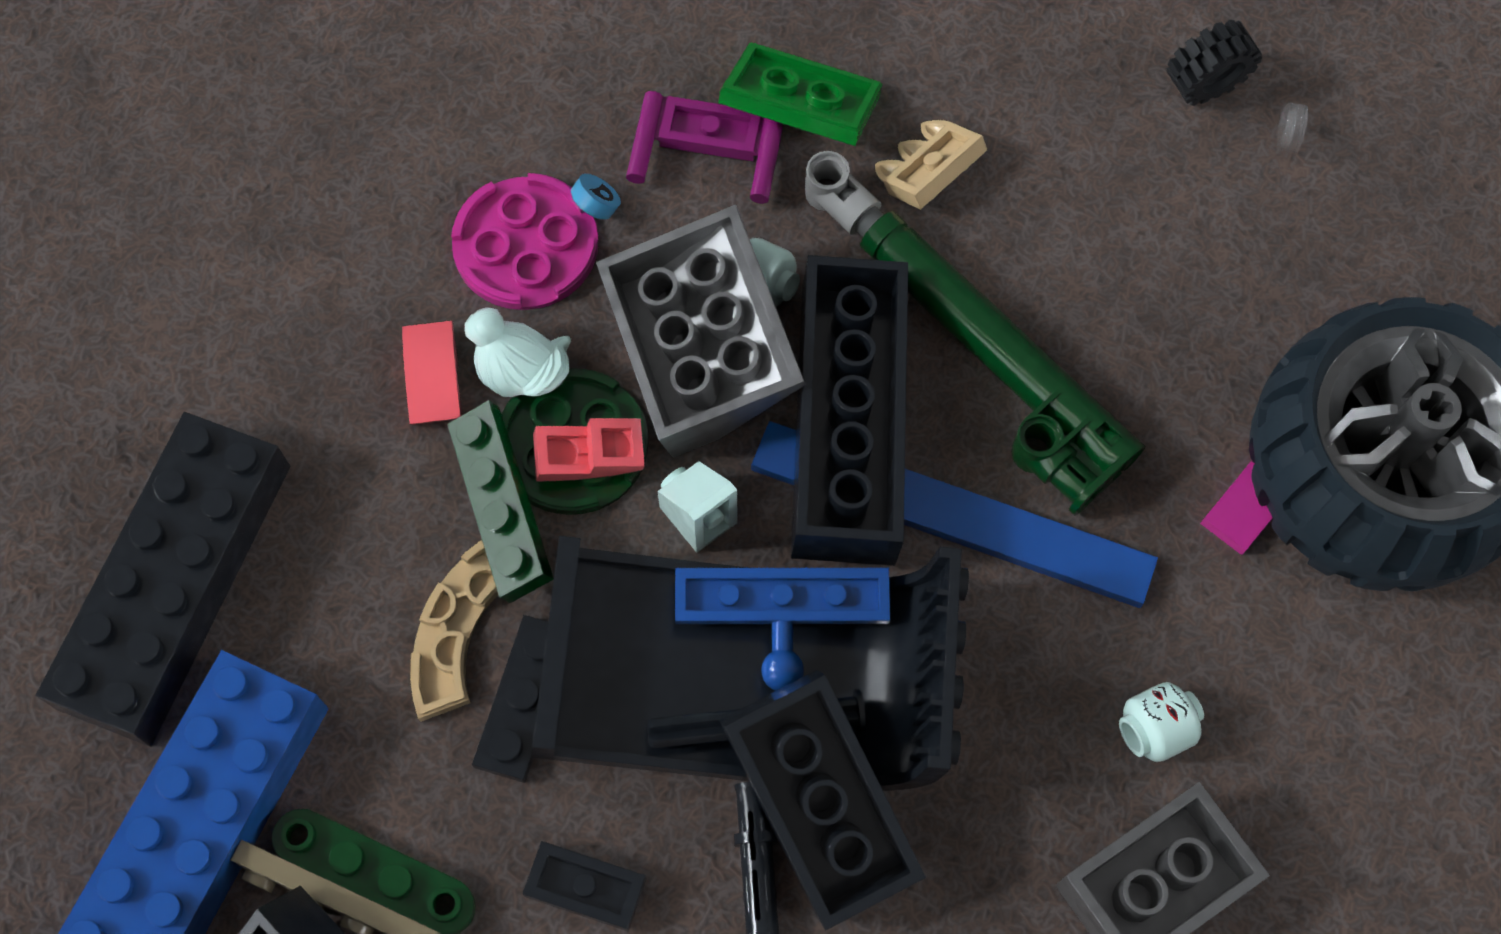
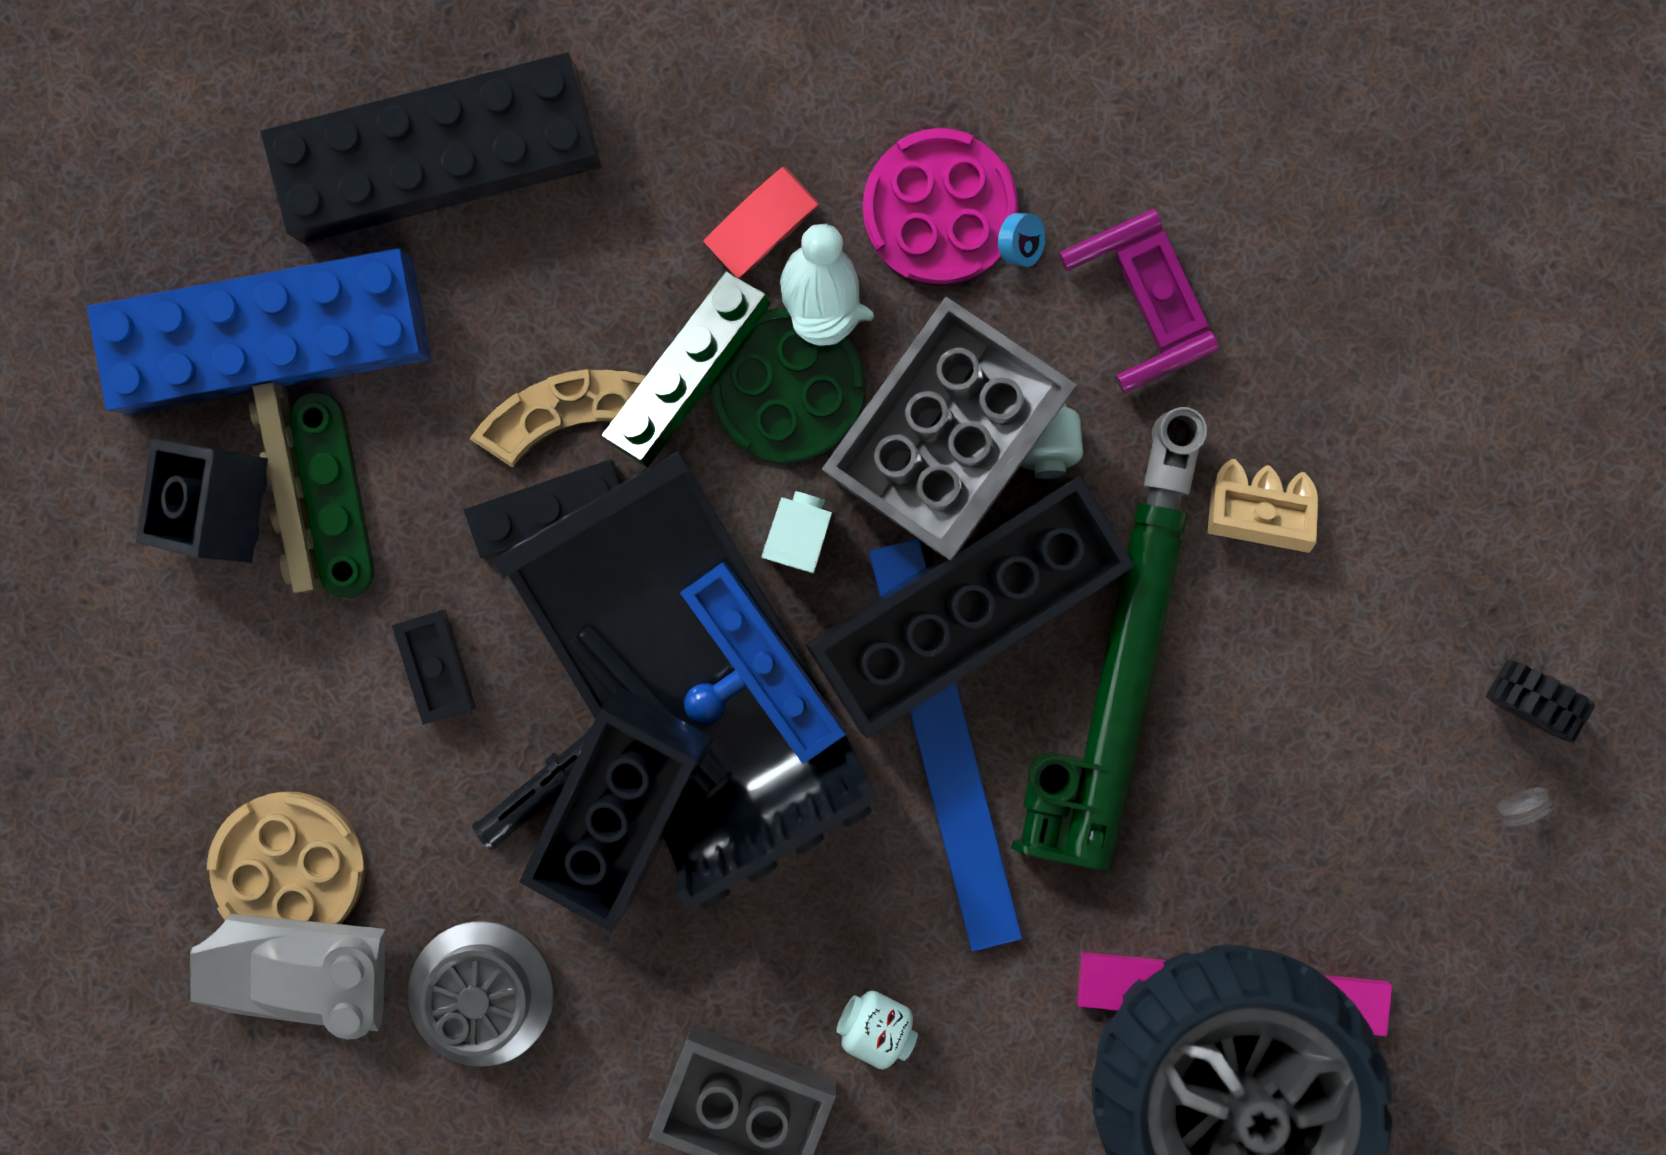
camera: 55 degrees right, 20 degrees up
(588, 451) = (782, 409): coral slope -> none
(801, 93) = (1251, 348): green tile -> none

